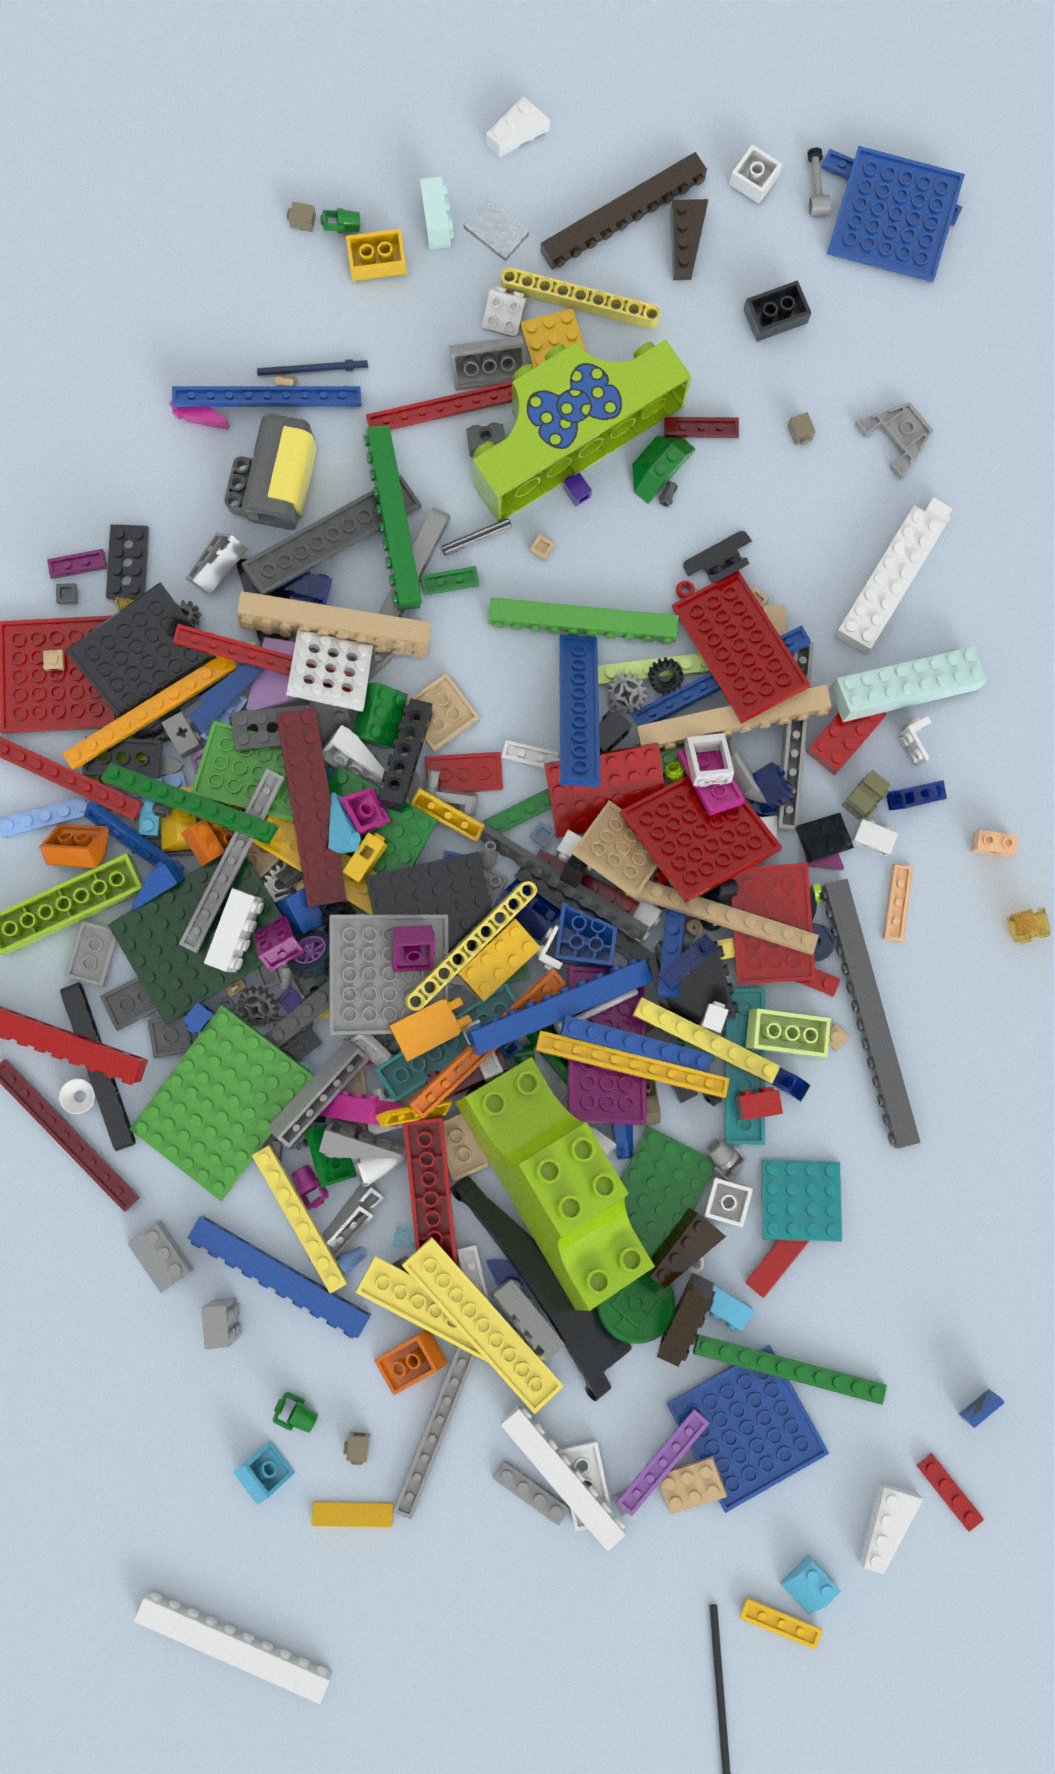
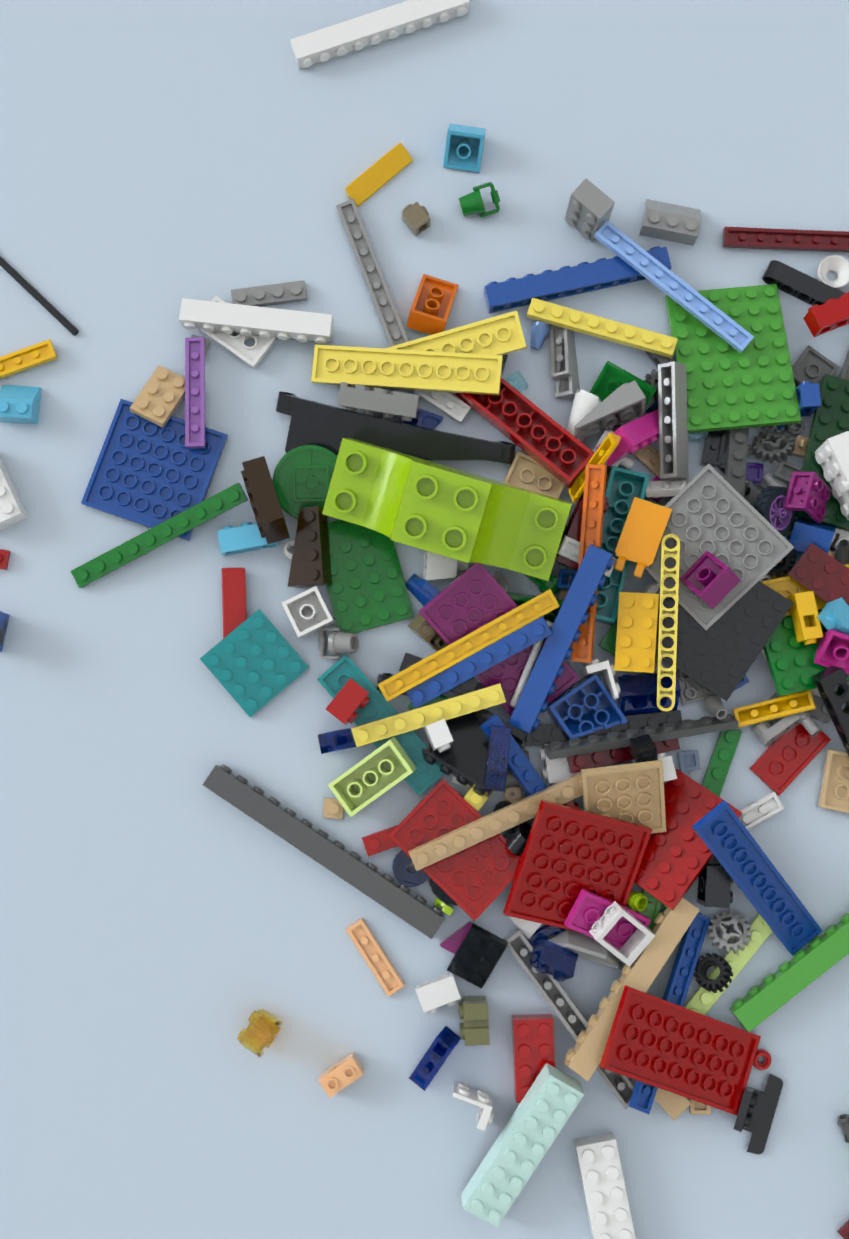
camera: 140 degrees right, 0 degrees up
(214, 1200) = (673, 286): none -> light blue plate
(306, 1182) = (619, 356): magenta piece -> none

